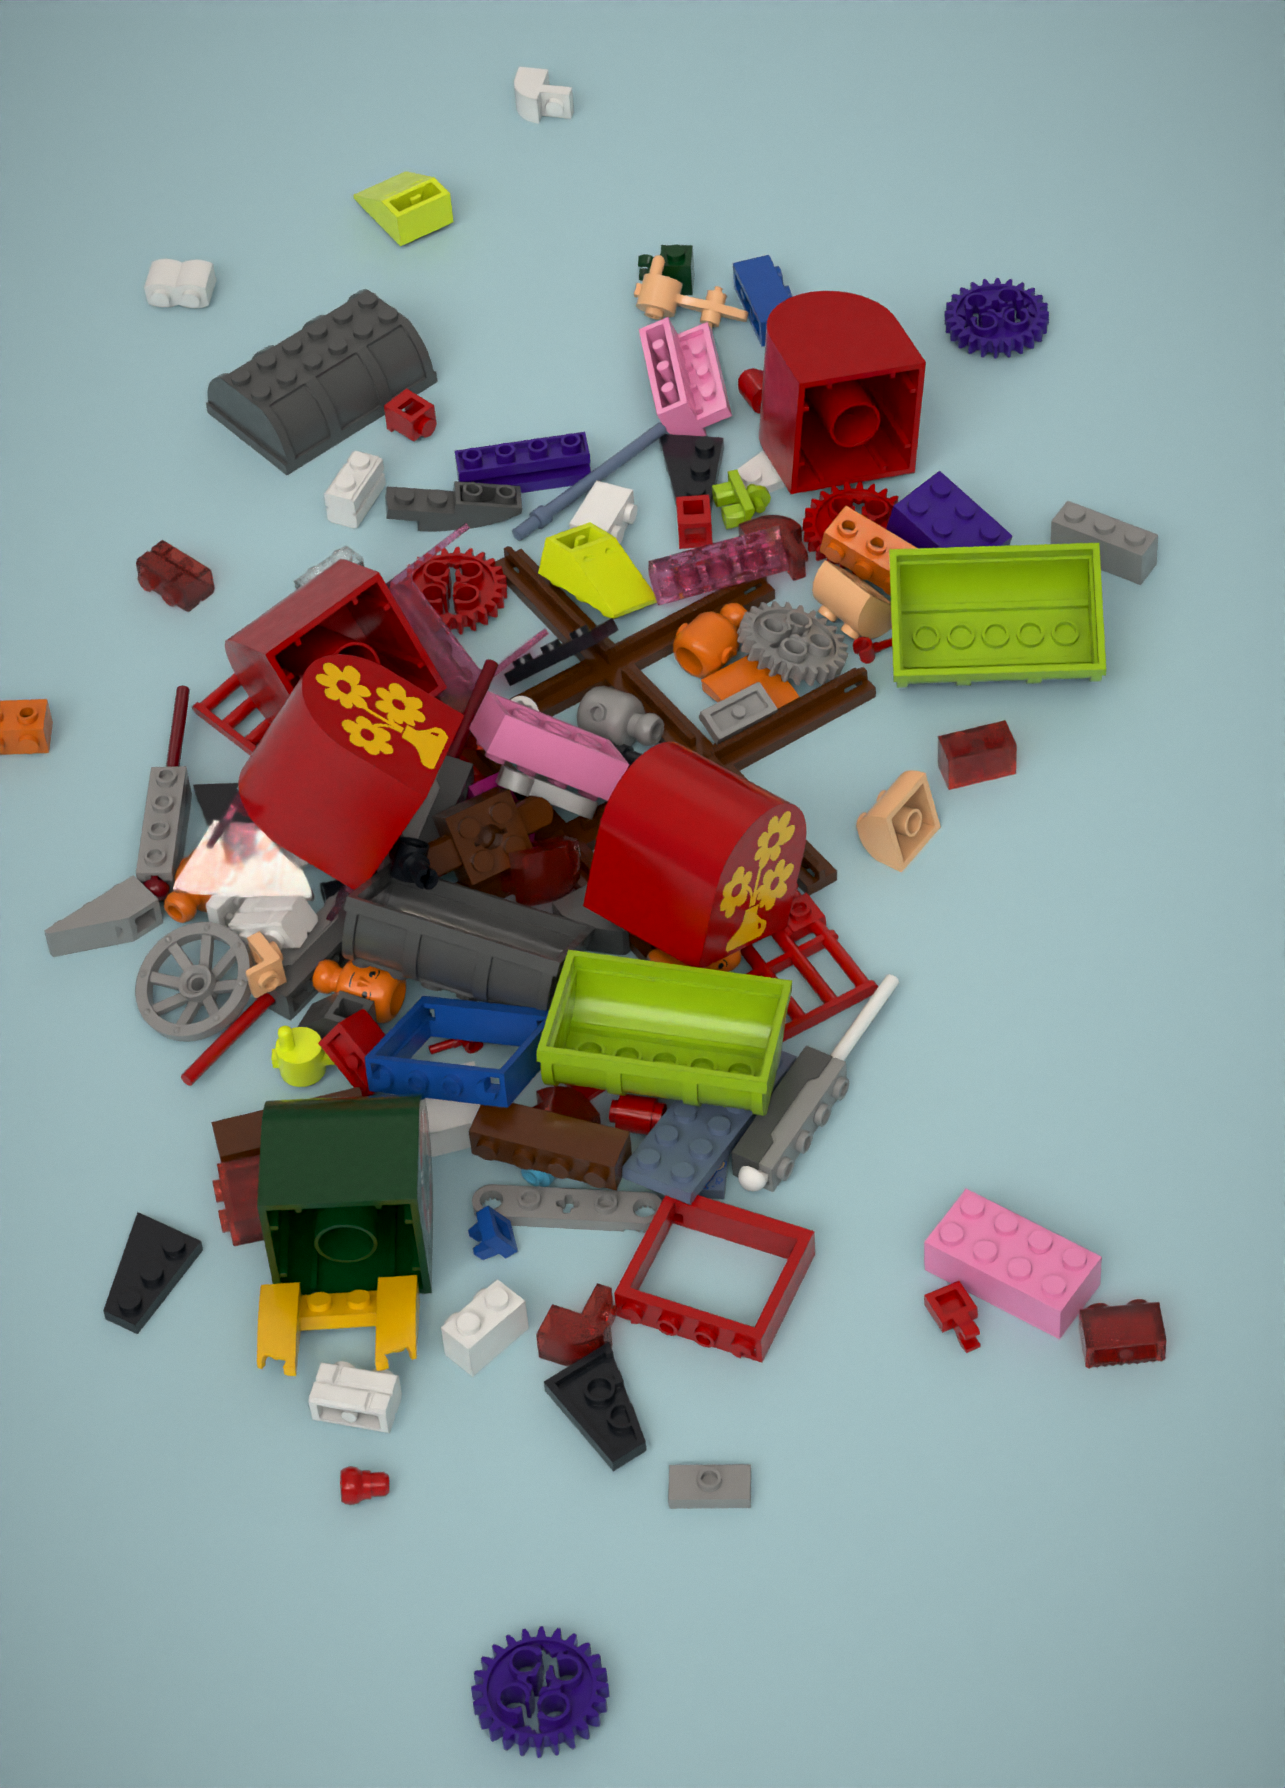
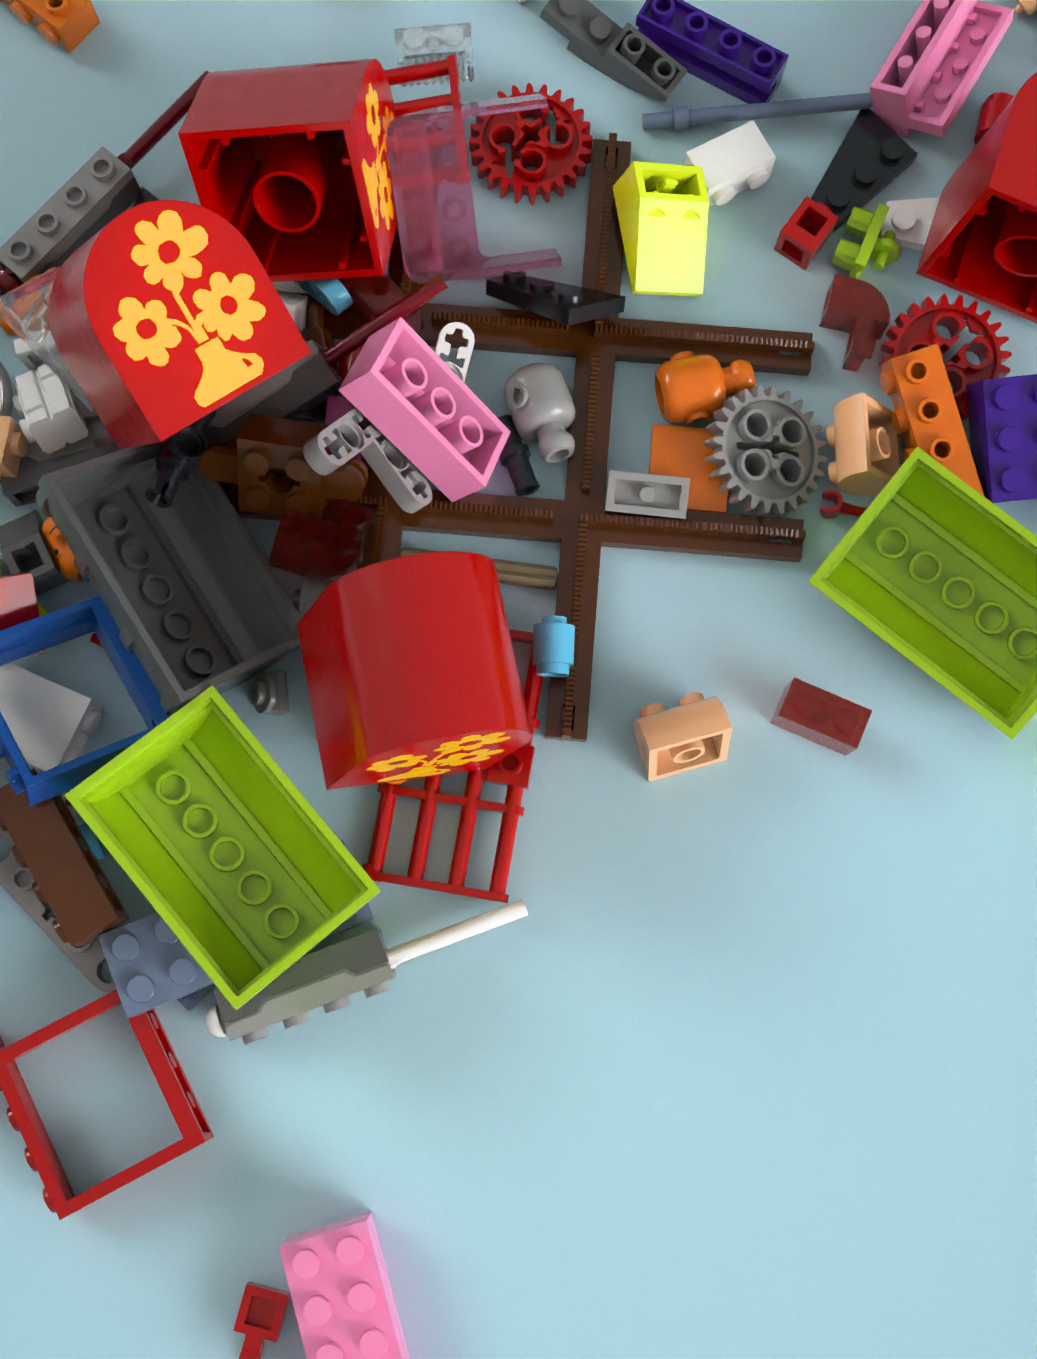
camera: 35 degrees right, 30 degrees up
(718, 565) = (775, 309): clear pink brick -> none

